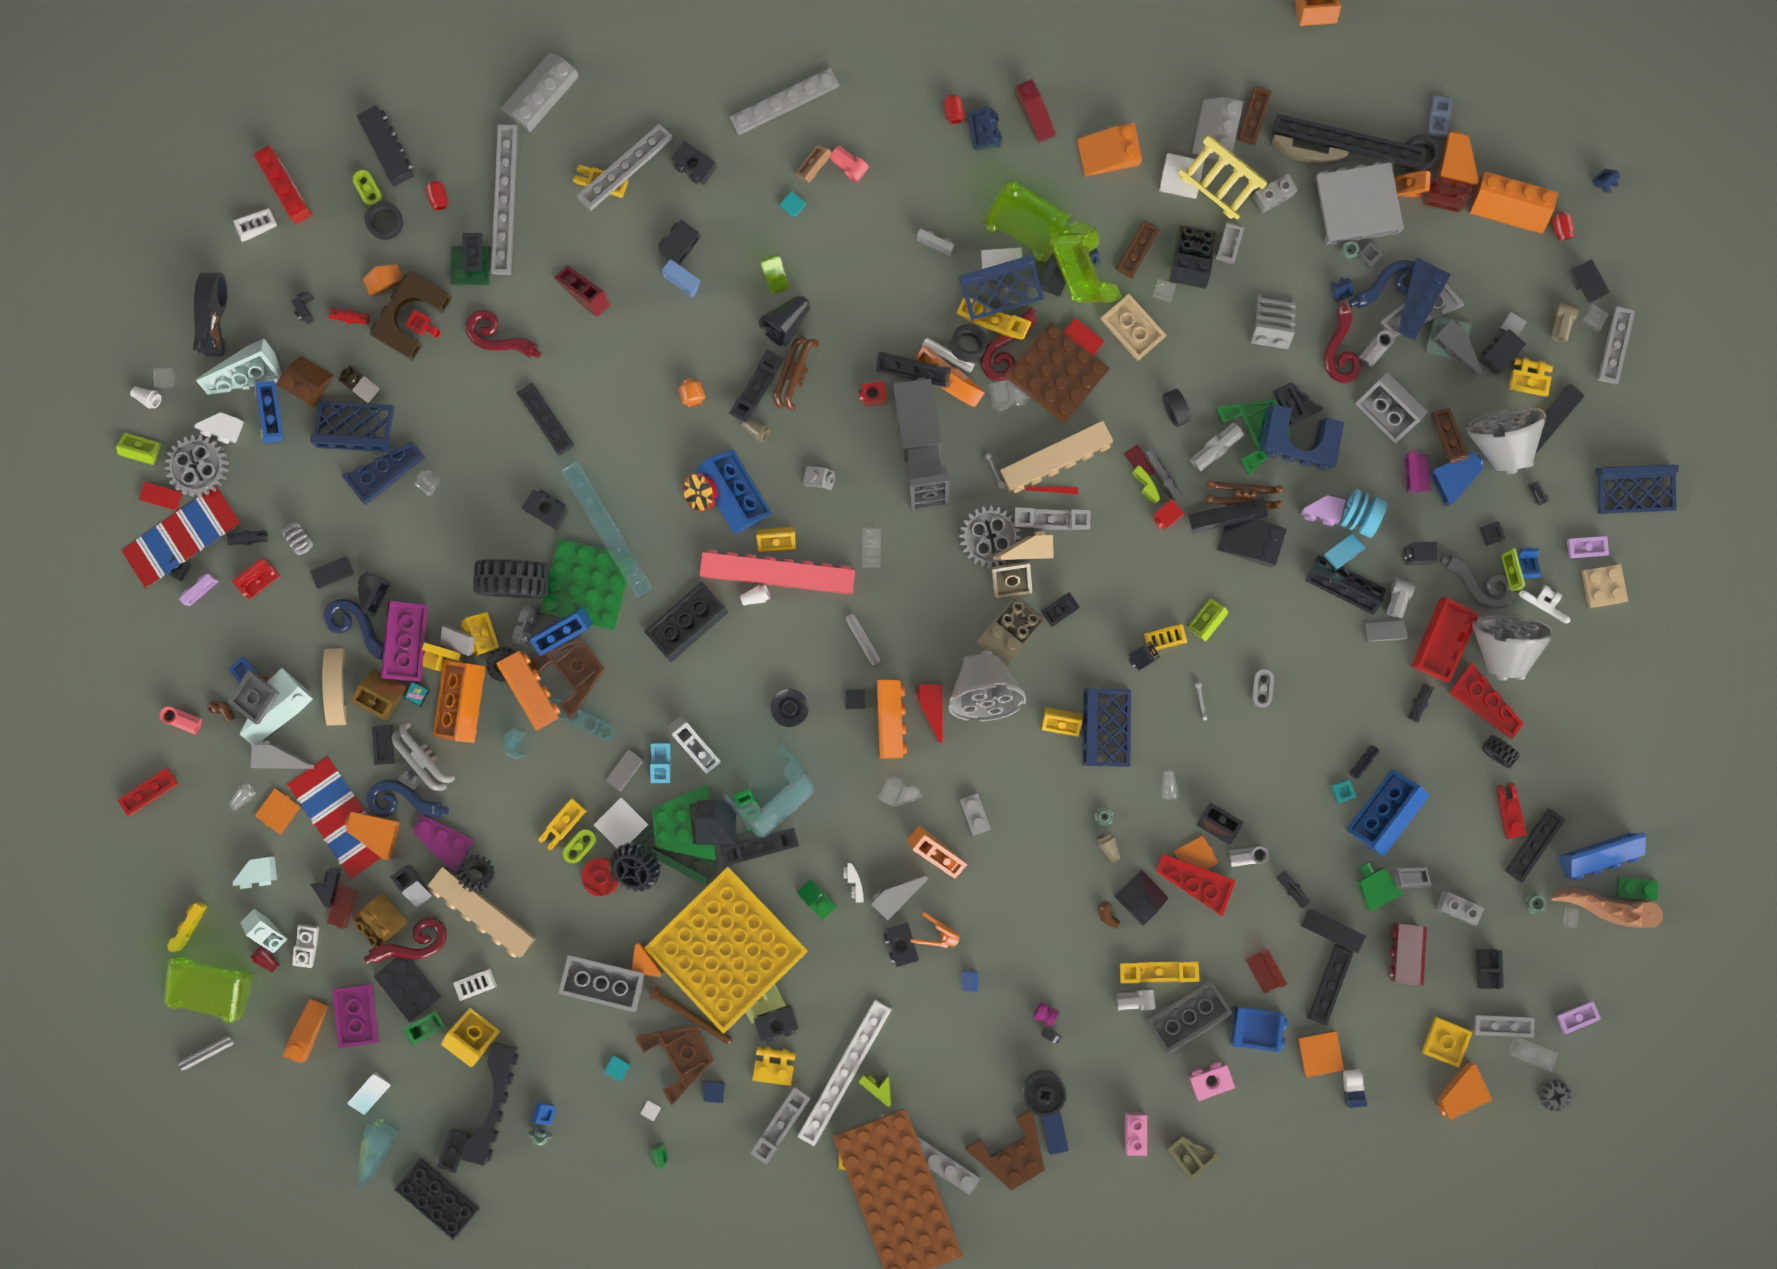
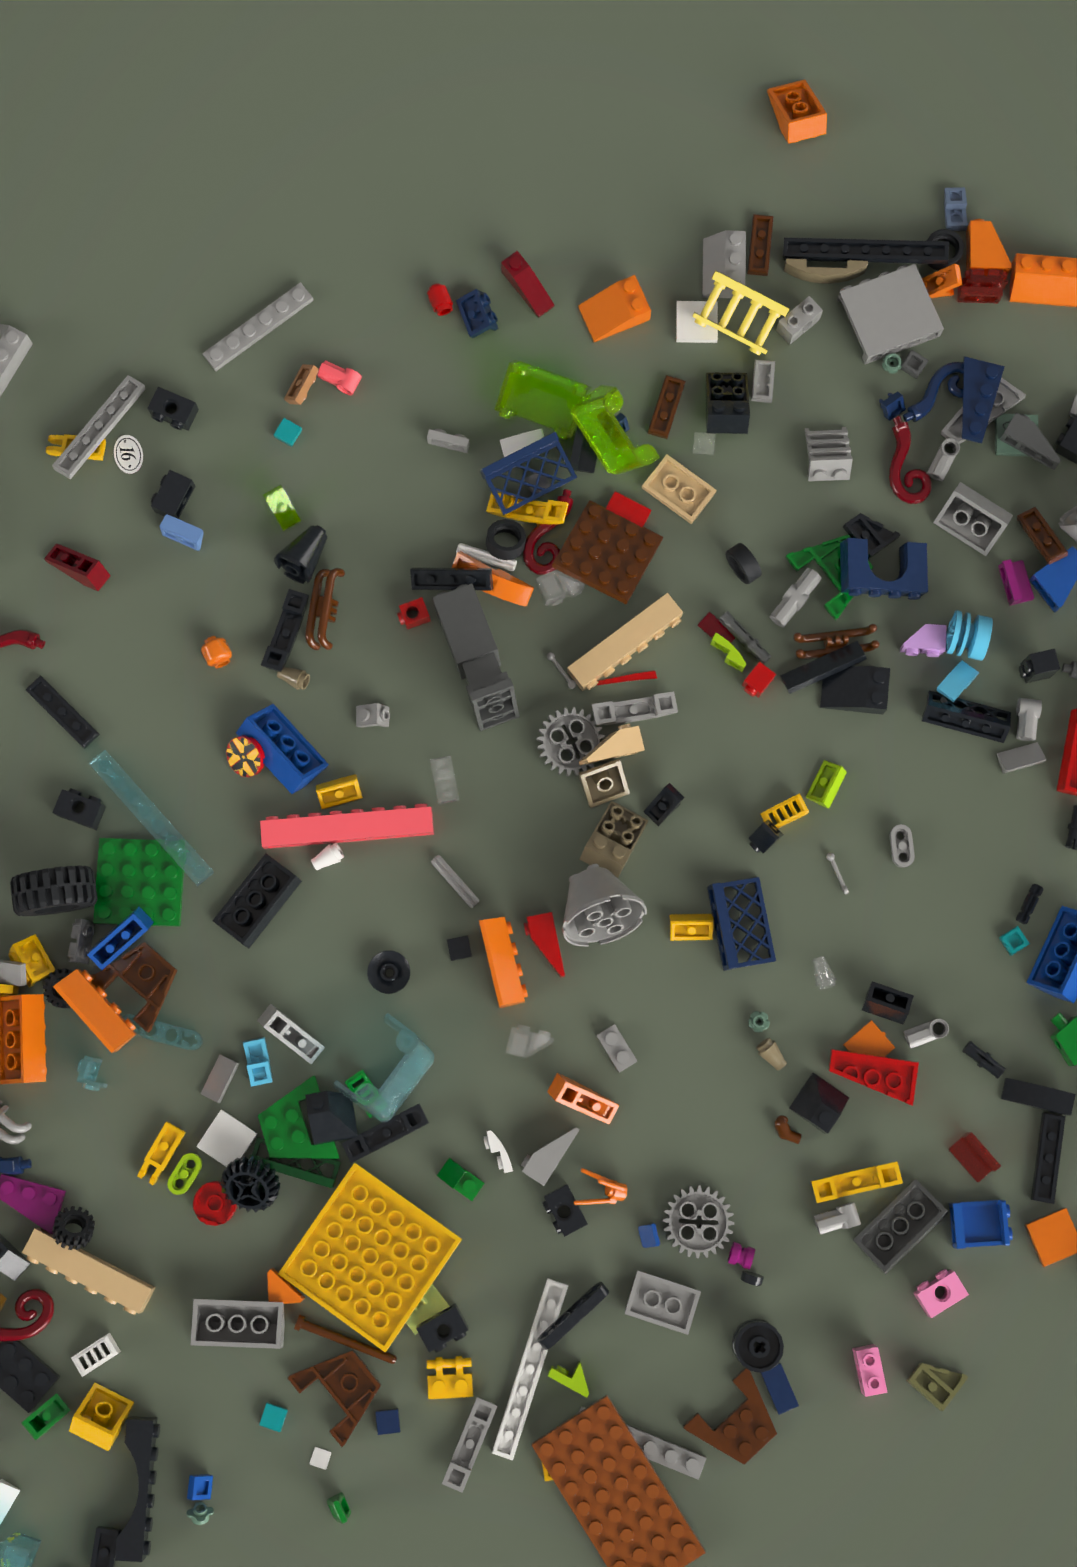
camera: 10 degrees left, 5 degrees down
(646, 196) = (128, 454): none -> white sticker
(890, 1035) = (573, 1315): none -> black beam
(969, 1039) = (662, 1302): none -> light grey plate
(1019, 960) = (699, 1201): none -> light grey gear

